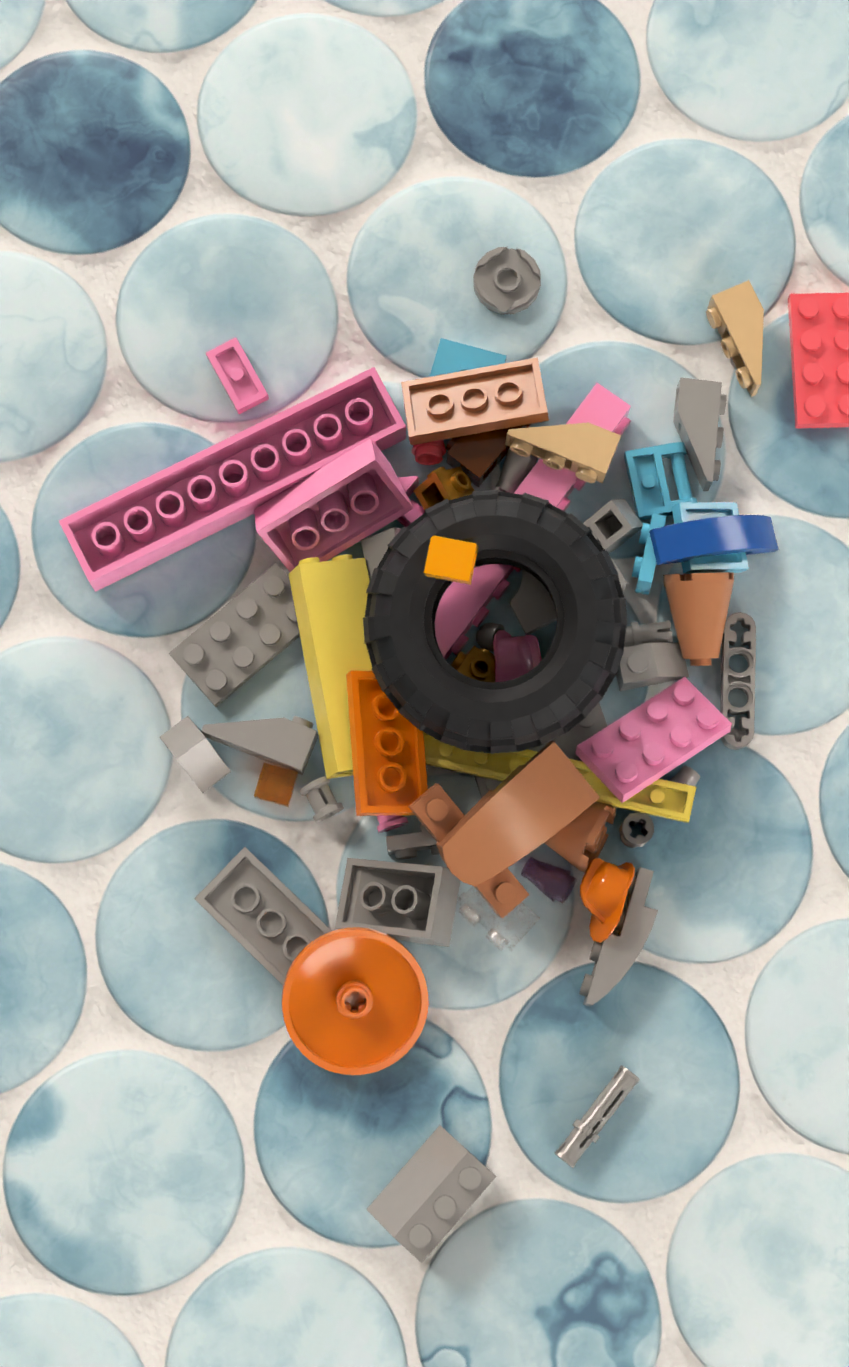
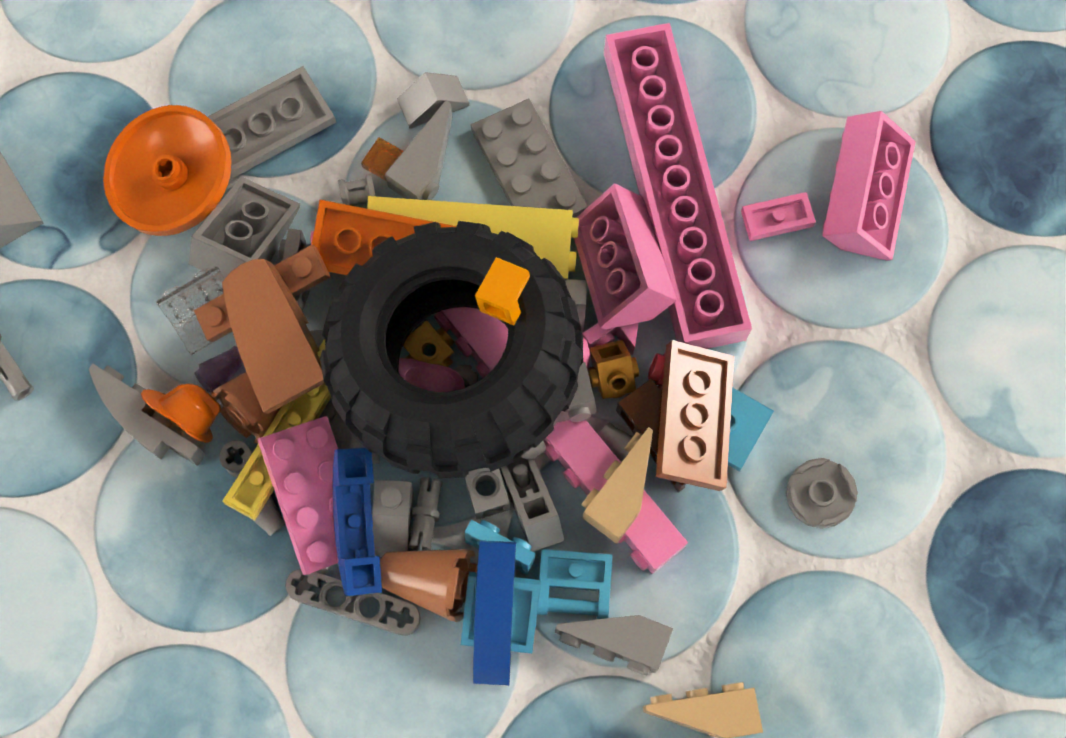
camera: 105 degrees right, 5 degrees down
(182, 296) = (869, 186): none -> bright pink slope
(674, 691) = (354, 523): none -> blue slope

